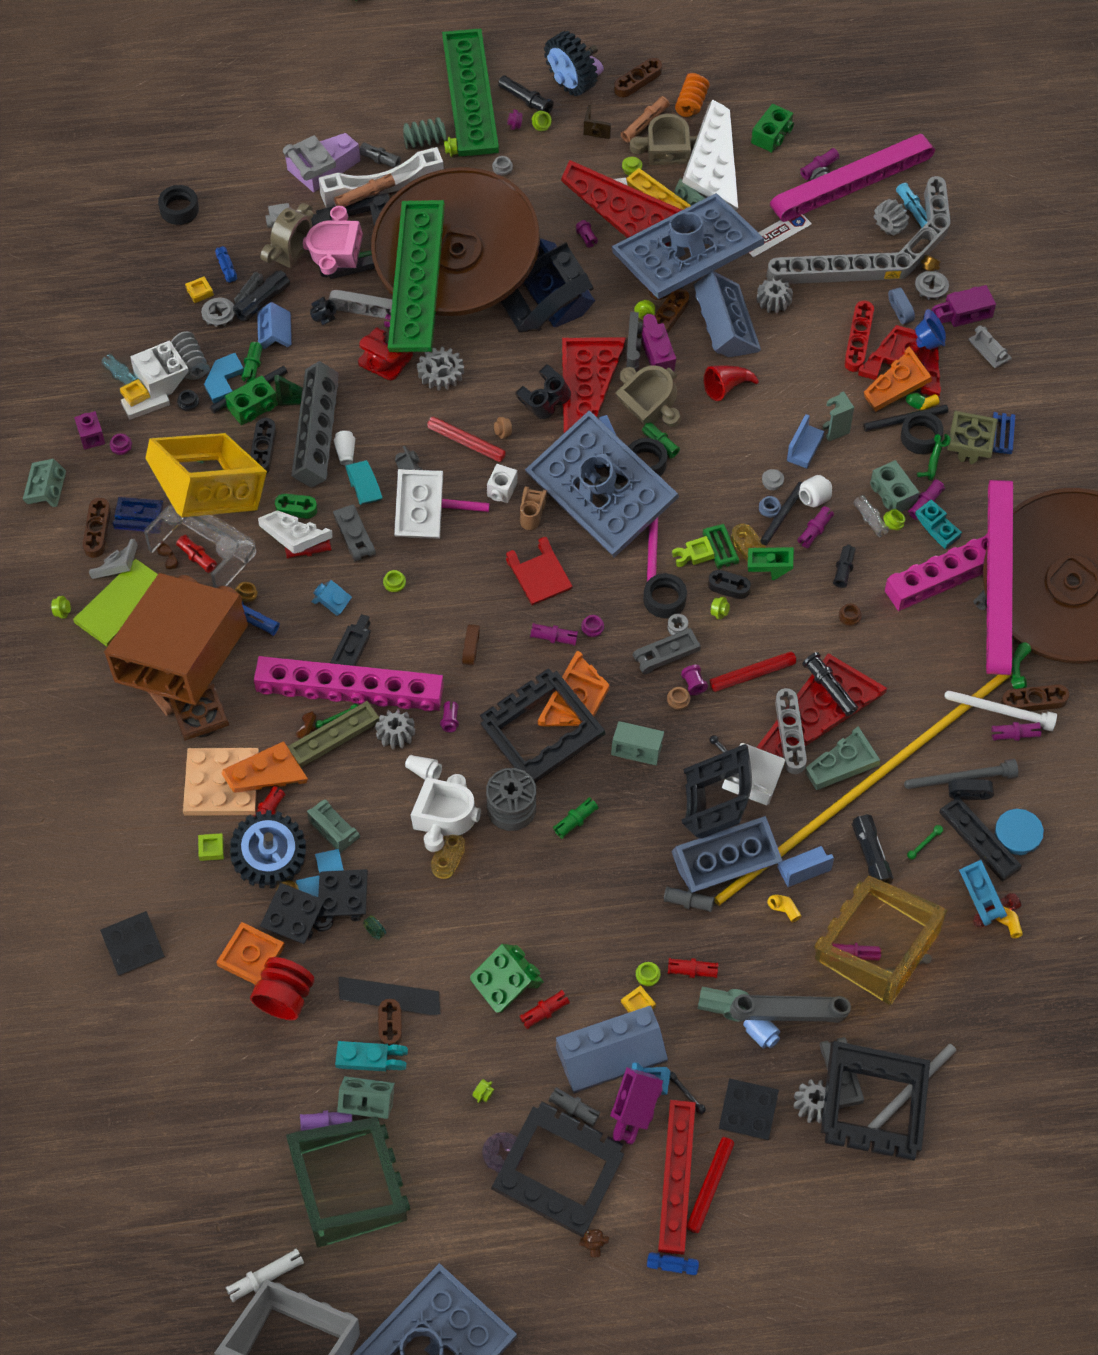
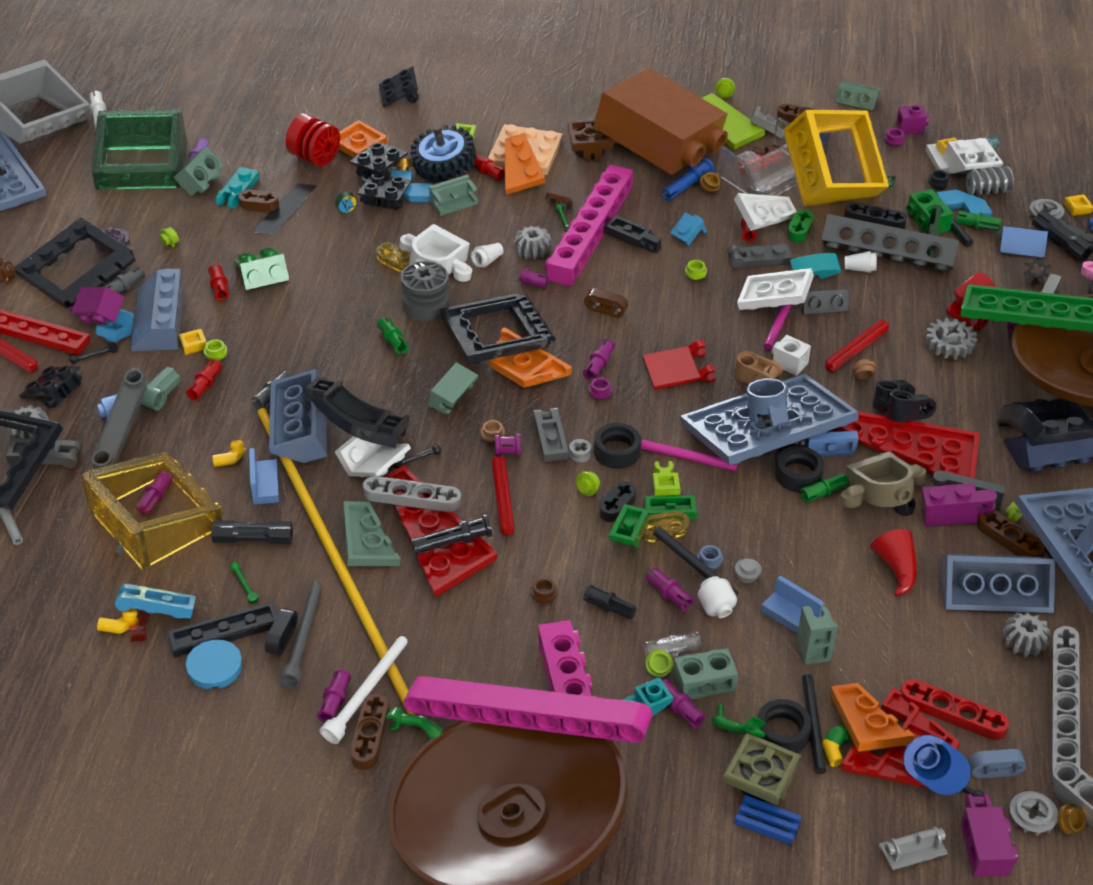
camera: 105 degrees right, 15 degrees down
(334, 734) = (543, 208): olive plate -> none

